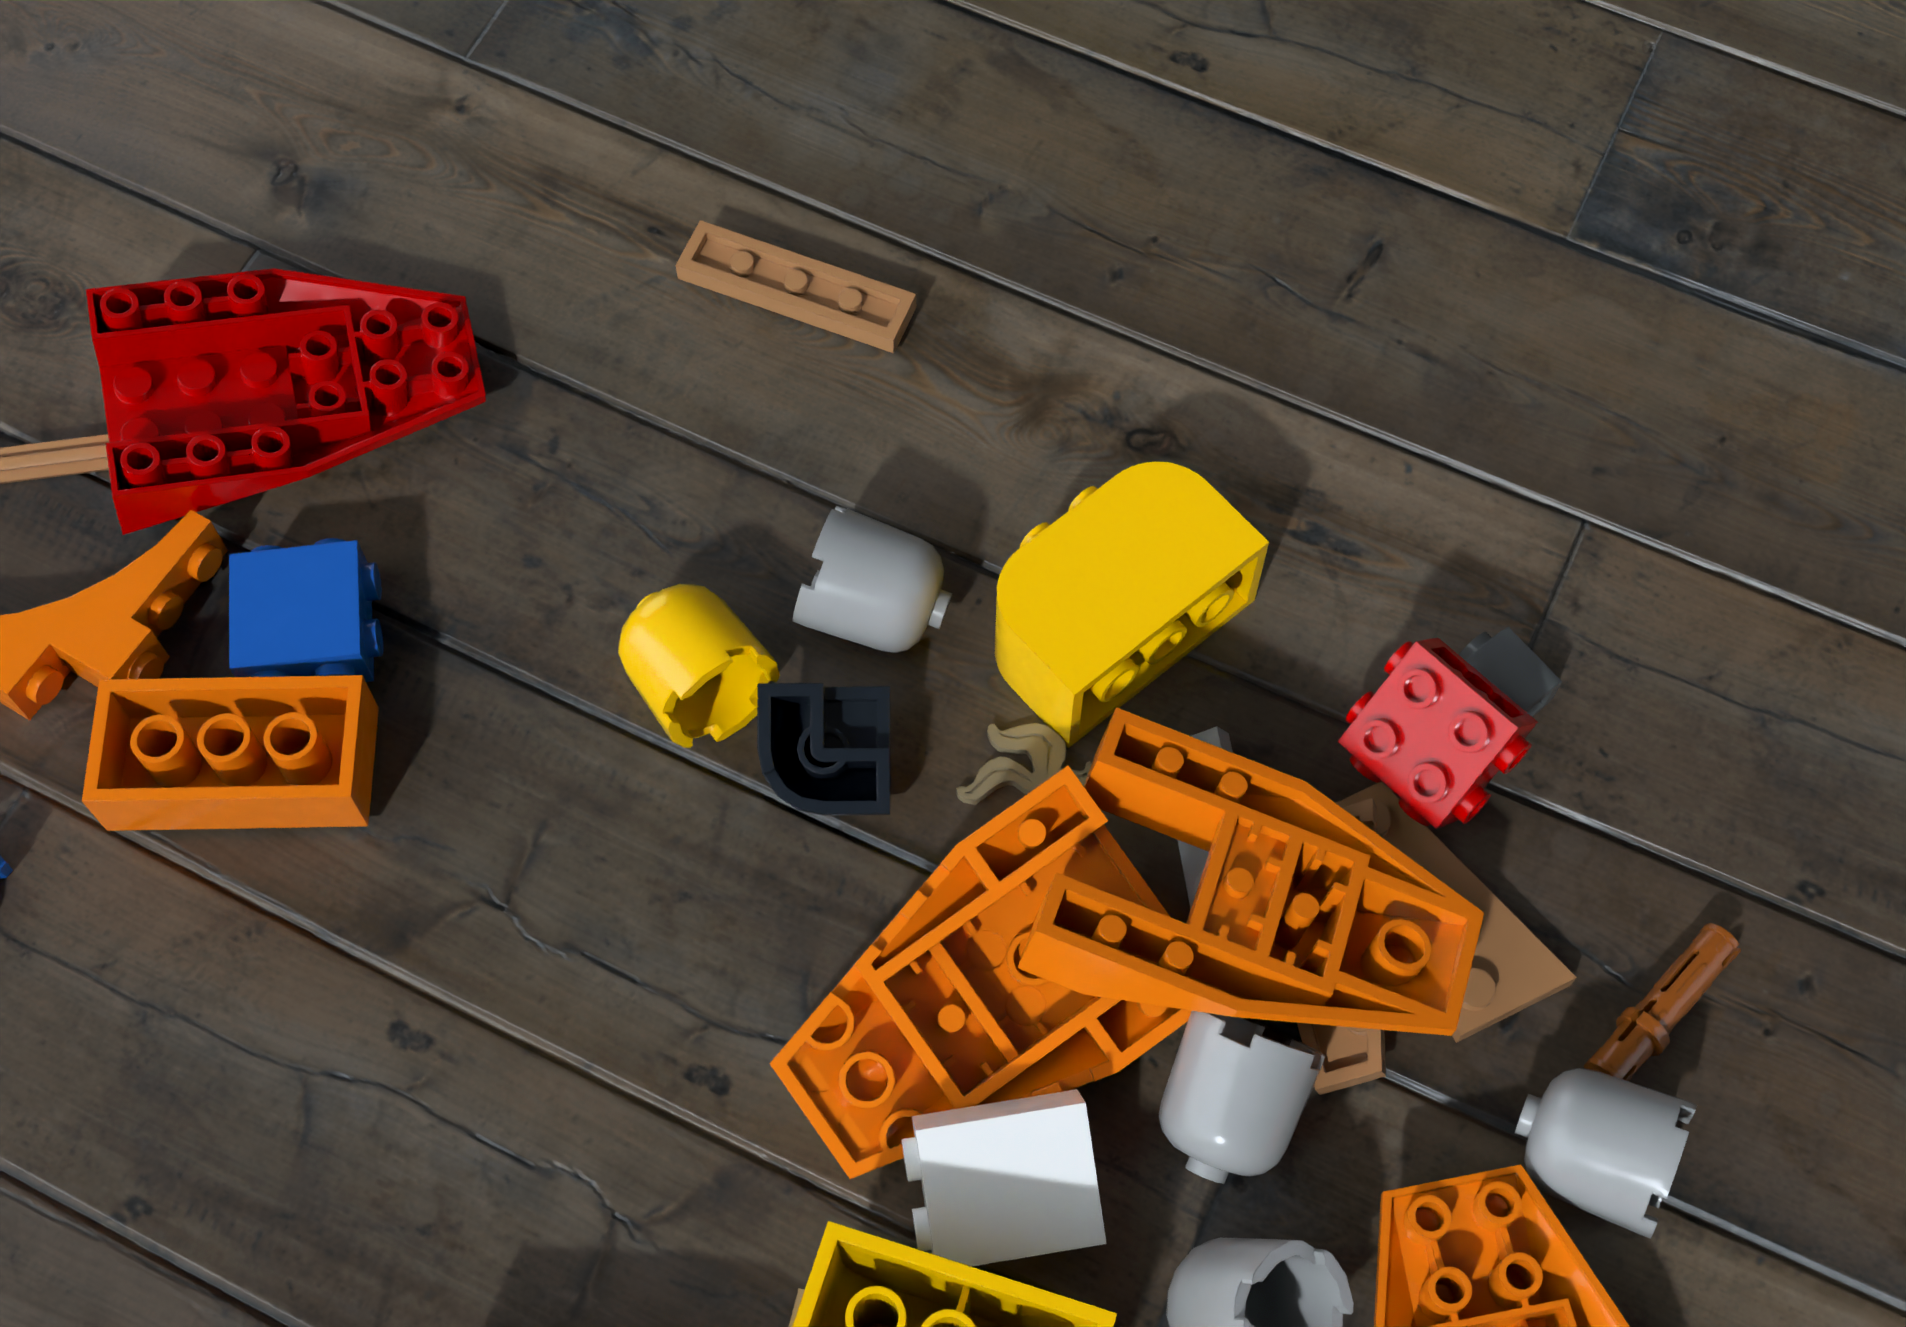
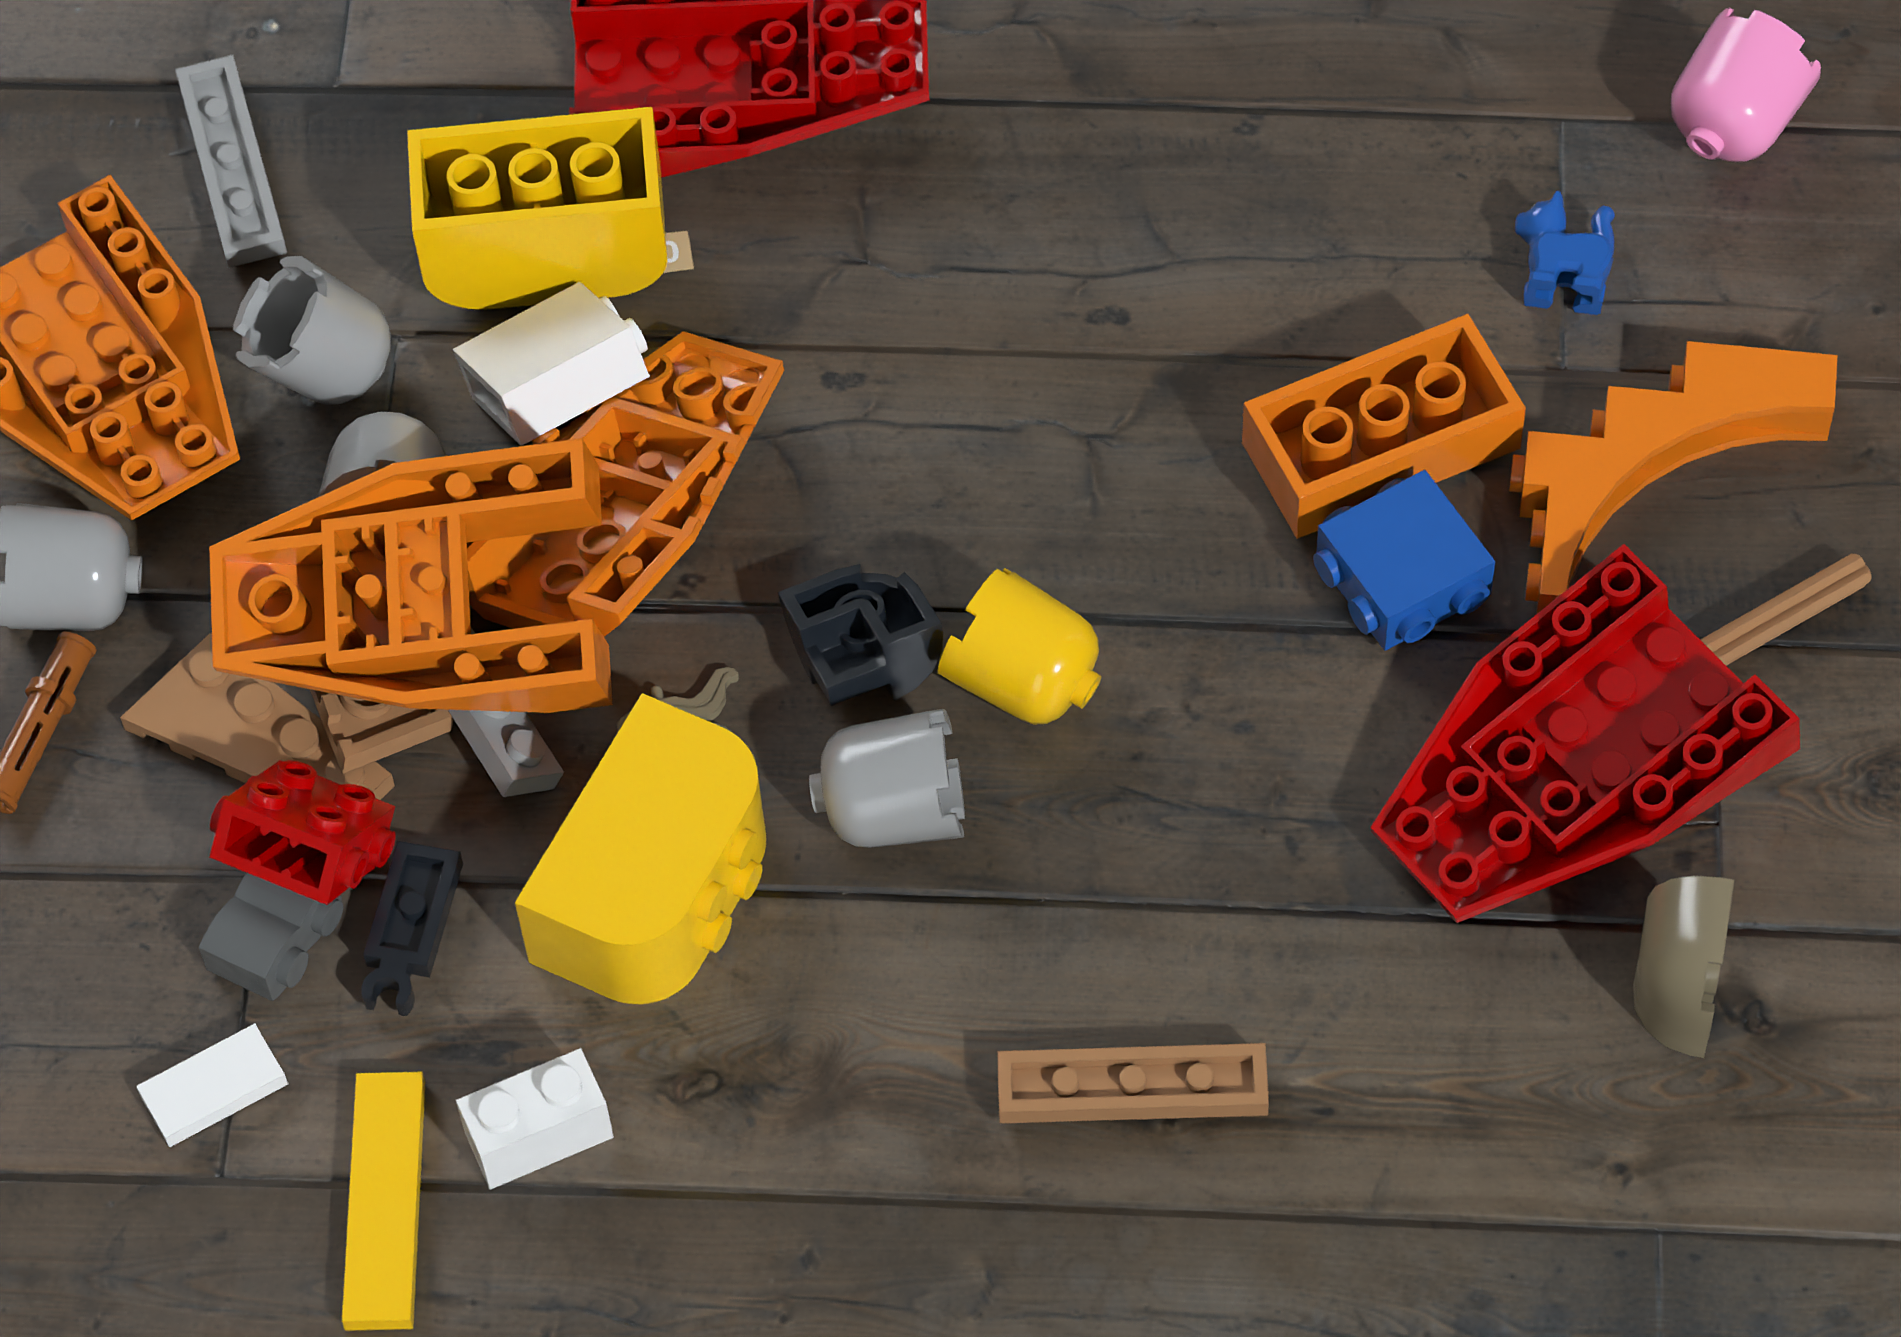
camera: 160 degrees right, 5 degrees down
(308, 181) = (1682, 960): none -> dark tan brick
(1304, 431) = (535, 1118): none -> white brick
(1352, 658) = (409, 921): none -> black plate
(1450, 438) = (384, 1201): none -> yellow tile
(1575, 588) = (212, 1085): none -> white tile

